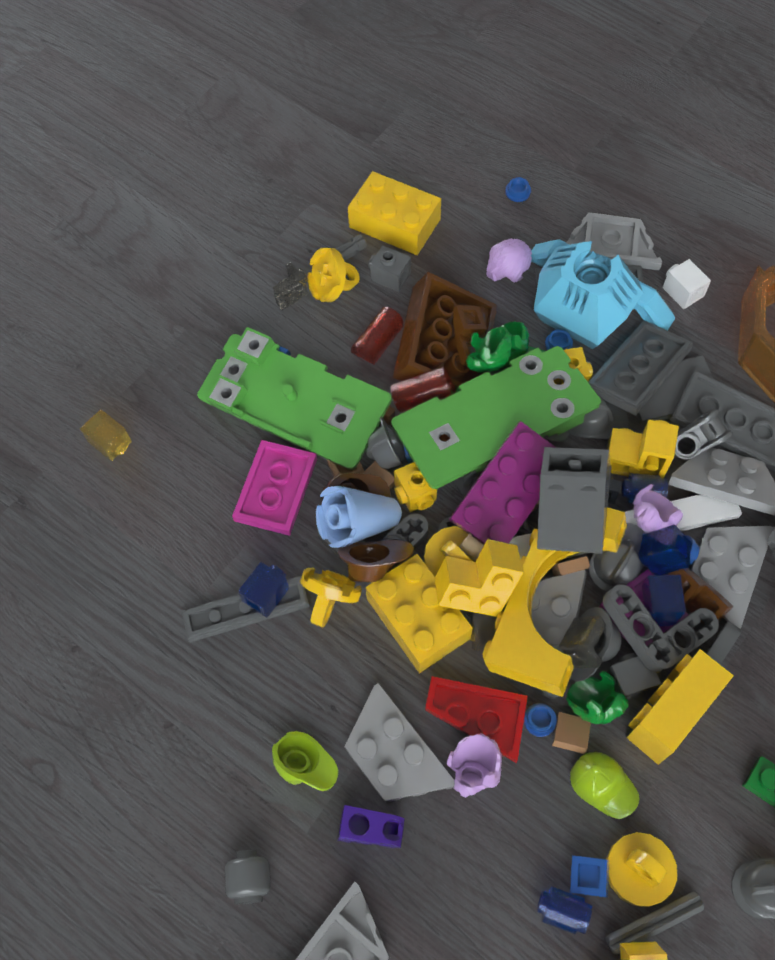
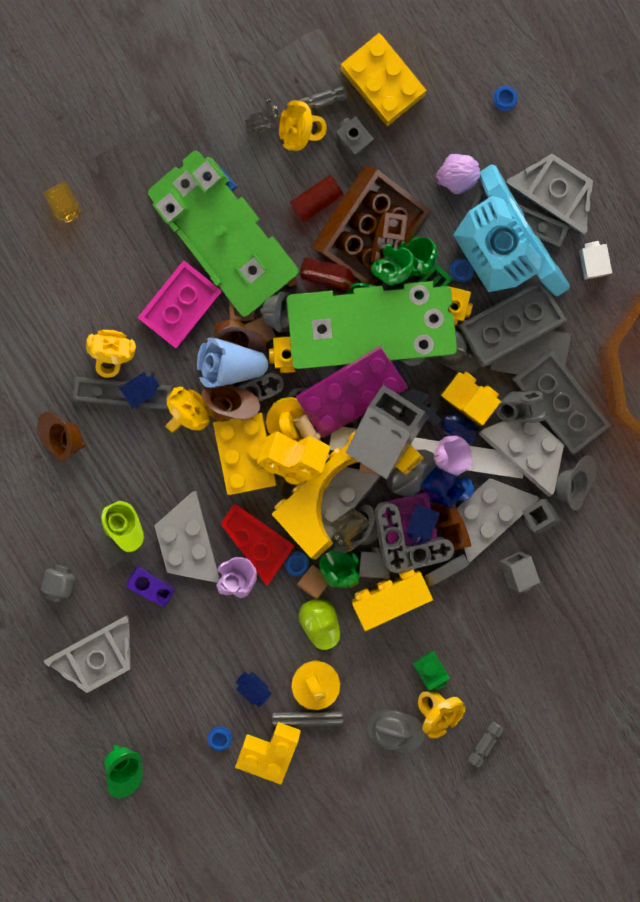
camera: 20 degrees right, 25 degrees up
(185, 683) = (59, 436): none -> reddish brown piece
(212, 560) = (111, 348): none -> yellow tile
(589, 876) = (279, 675): blue plate -> none

